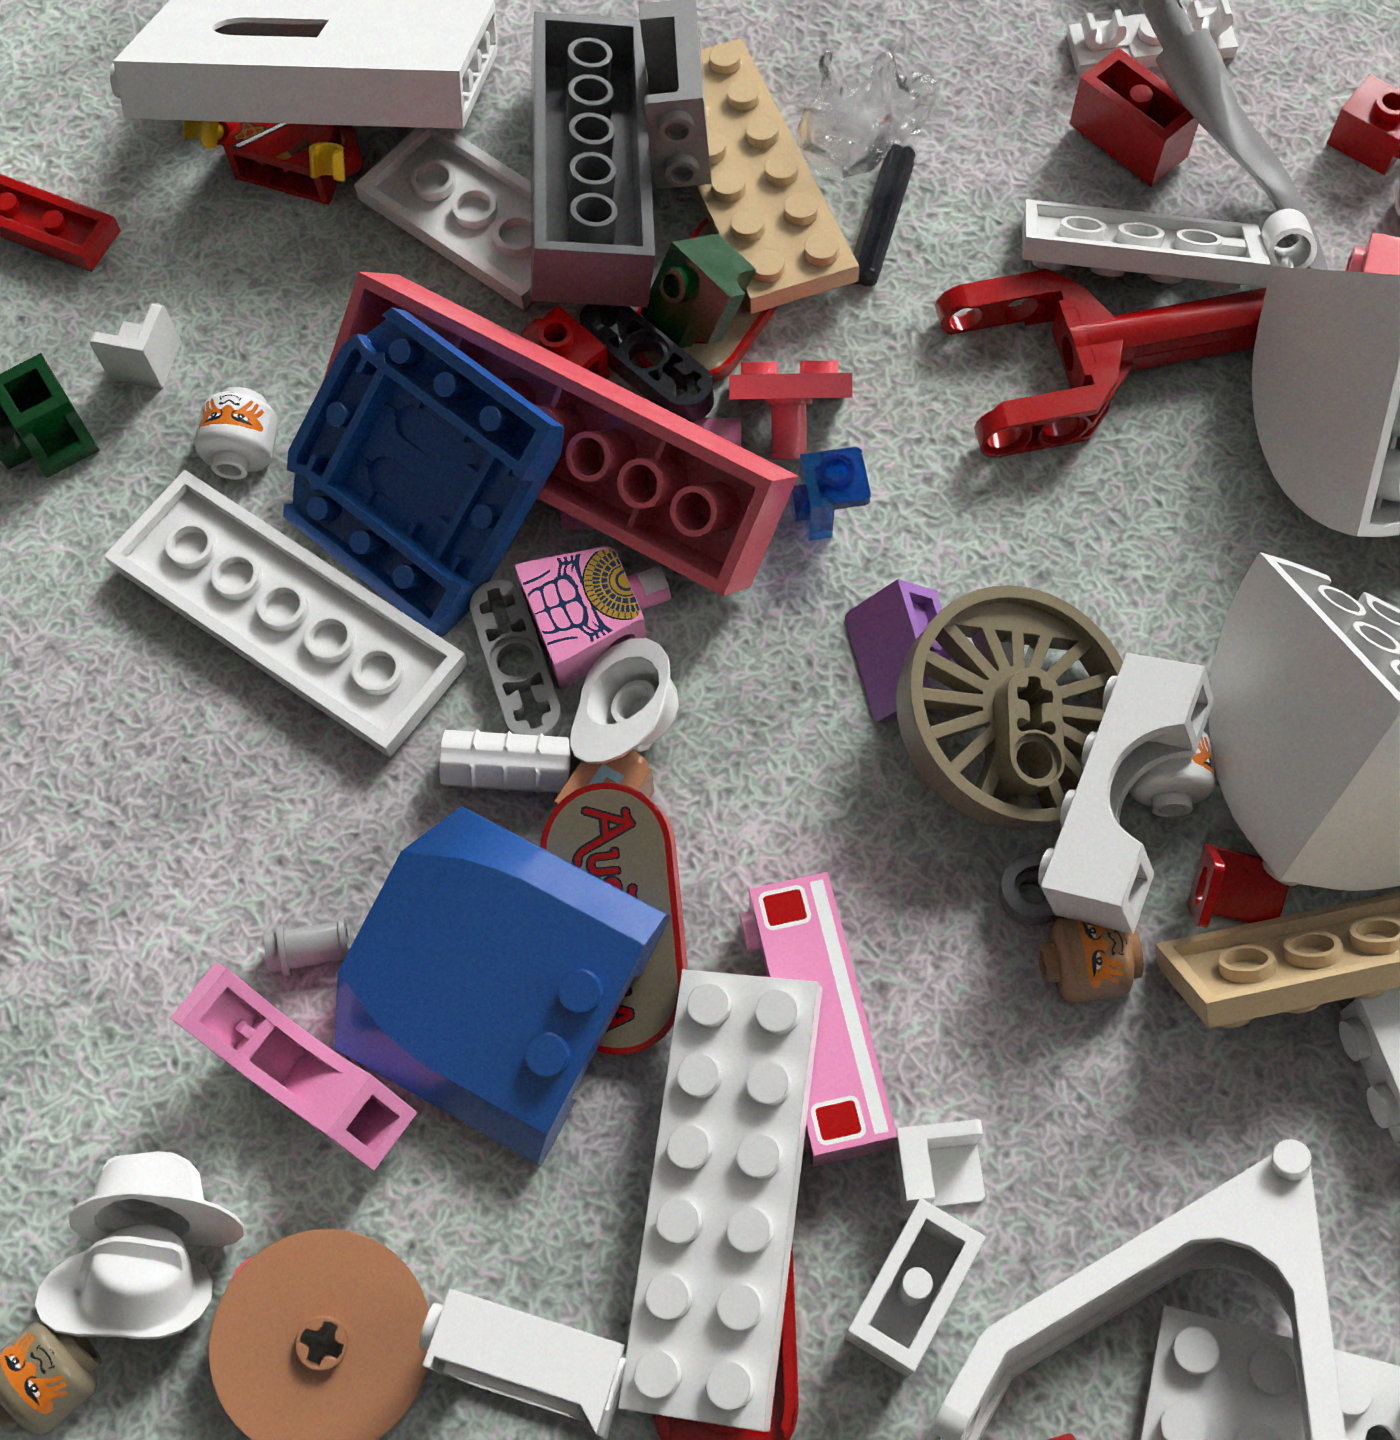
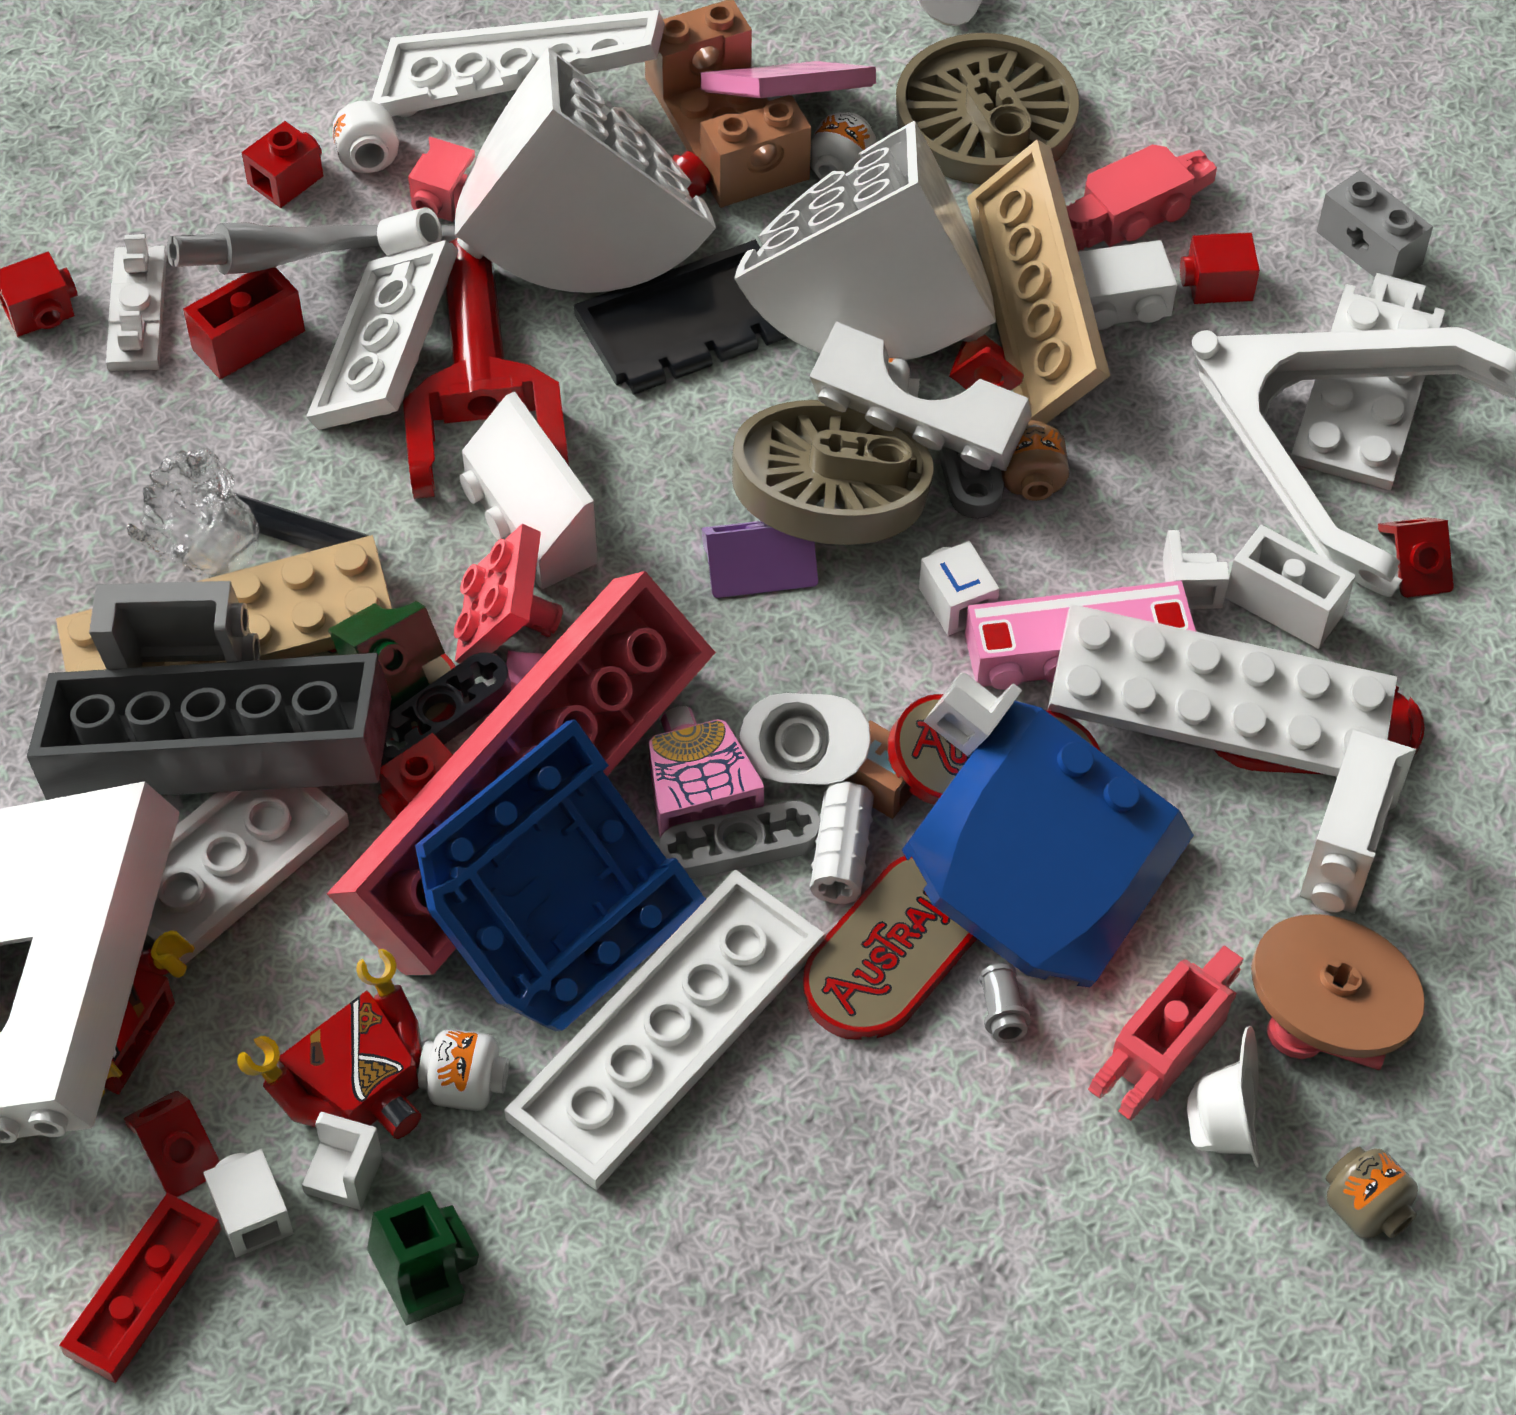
camera: 90 degrees left, 10 degrees down
(103, 278) = (248, 1202): none -> white brick
(127, 1287) = (1300, 1130): white piece -> none
(169, 213) = (174, 1142): none -> red bracket
(234, 333) = (351, 1064): none -> red torso
(252, 1130) = (1169, 1030): none -> coral hinge
(294, 1066) = (1142, 962): bright pink arch -> none
(356, 807) = (882, 957): none -> dark tan tile
(641, 864) = (969, 712): none -> white panel
(828, 483) = (601, 564): clear blue bracket -> none
(876, 869) = (953, 581): none -> white brick
(935, 406) = (528, 482): none -> white slope
(1224, 513) = (675, 322): none -> black hinge

